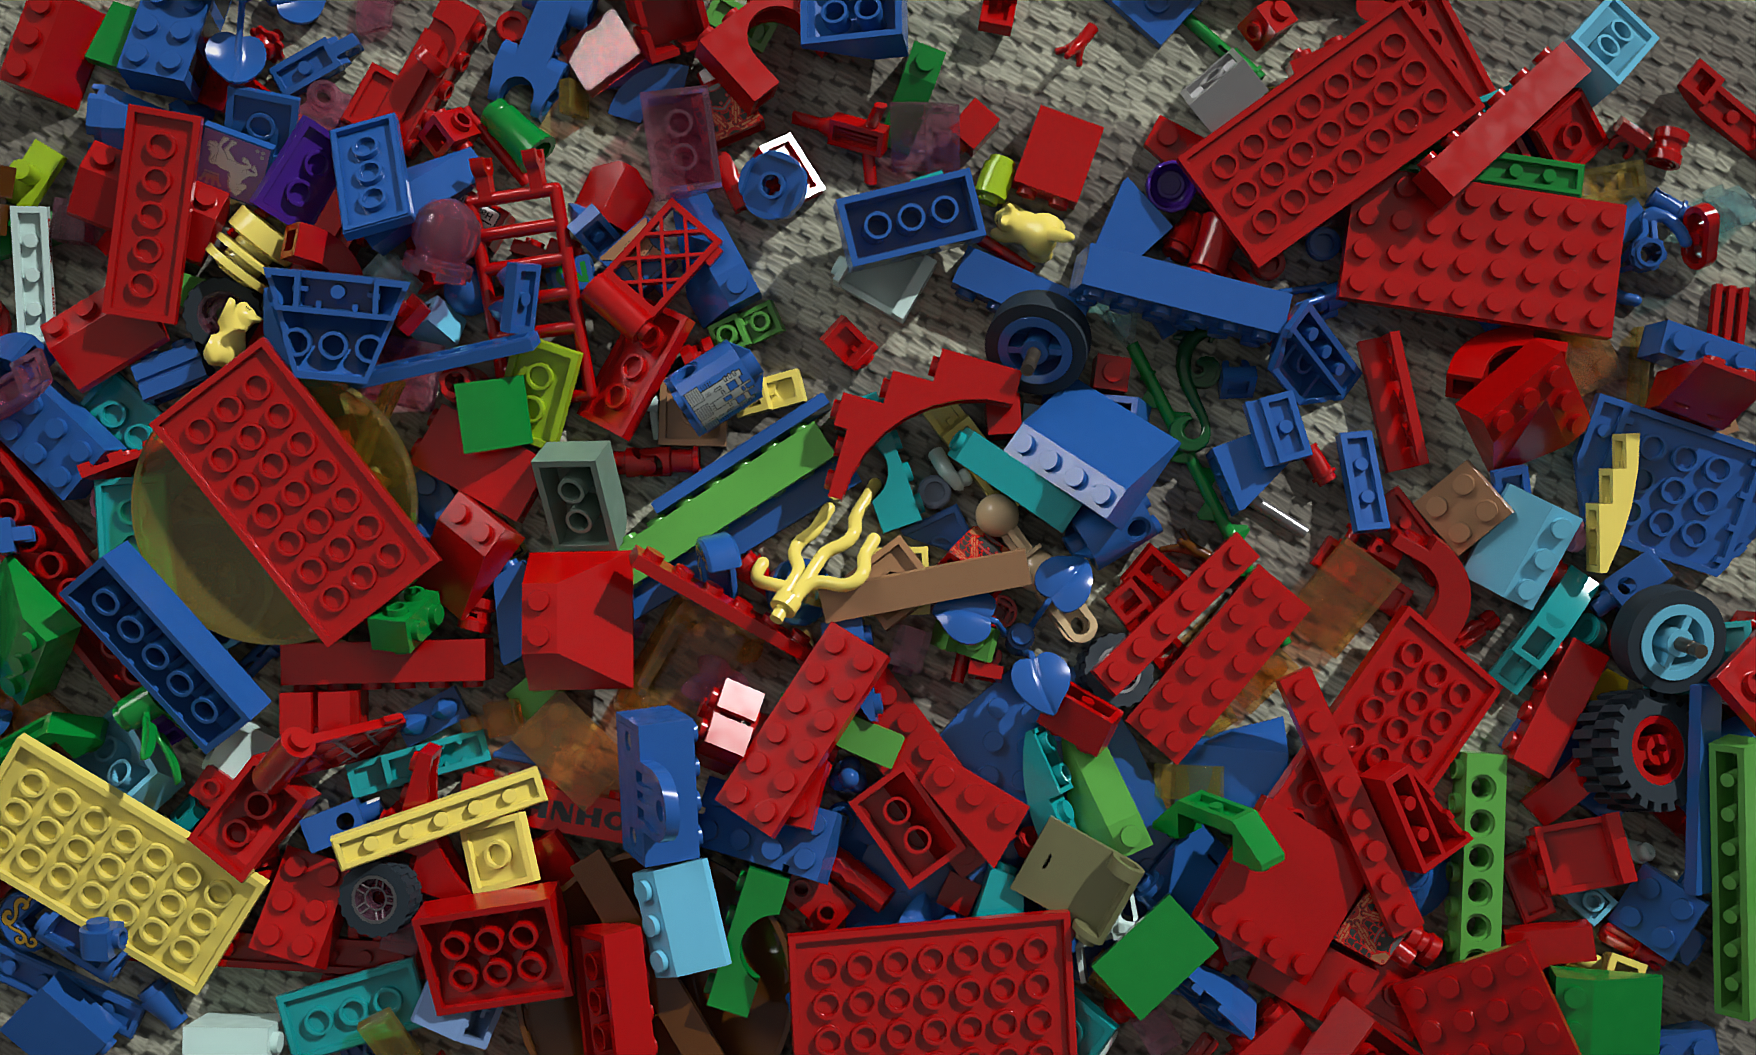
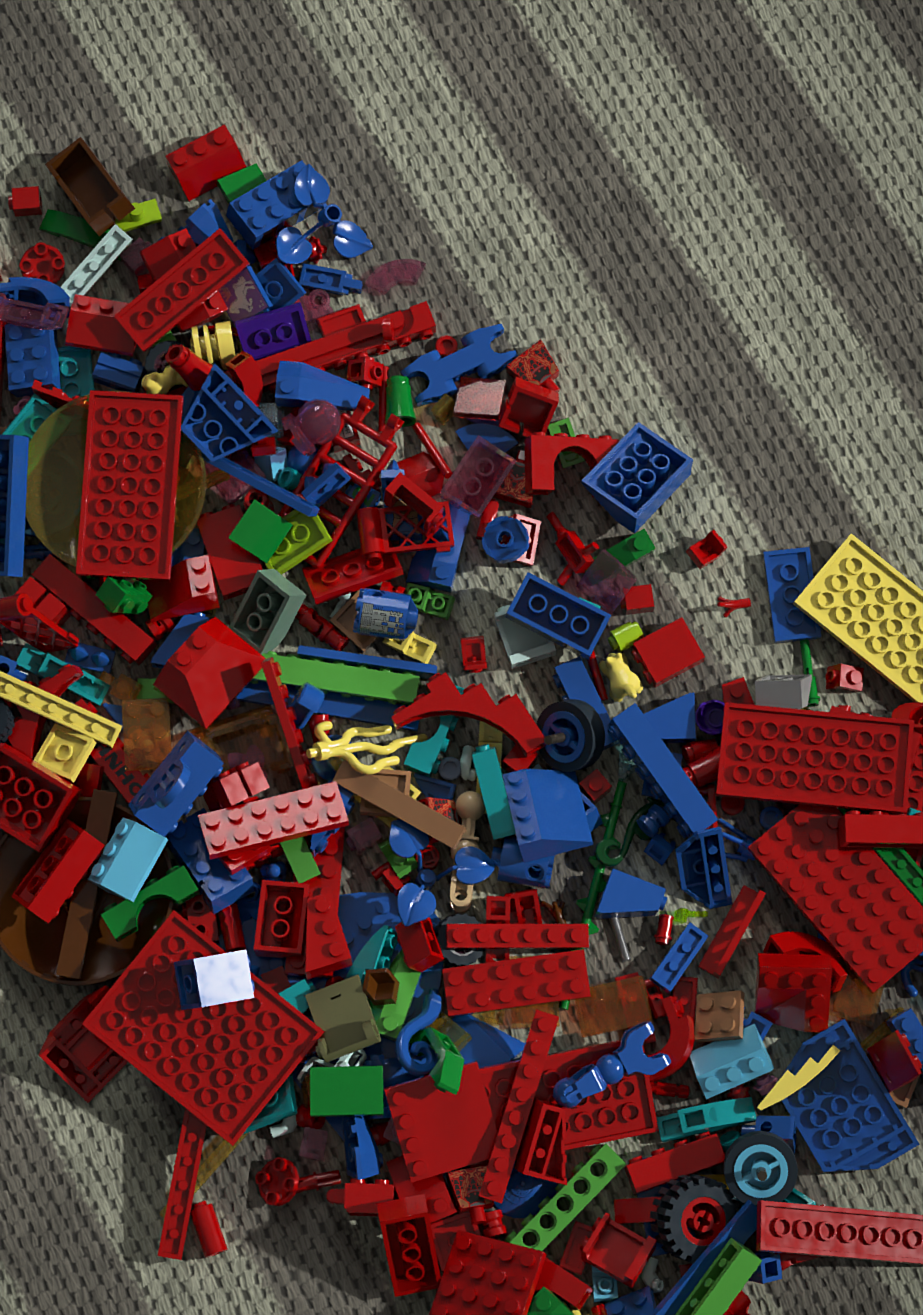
camera: 45 degrees right, 10 degrees down
(236, 296) = (188, 366): none -> red plant
(371, 177) = (306, 362): blue tile -> none
(472, 326) = (289, 478): none -> teal tile
(602, 157) = (432, 450): none -> red bar
(638, 224) = (417, 499): none -> red panel
(906, 975) = (214, 979): none -> slope
(1085, 805) = (381, 986): none -> reddish brown panel
(1155, 780) = (430, 1011): none -> blue plant
(1208, 357) = (653, 820): none -> blue wheel
(1277, 429) = (654, 887): blue plate -> none
(1321, 433) = (682, 914): none -> clear neon green hand
(1403, 708) = (611, 1068): none -> blue piece

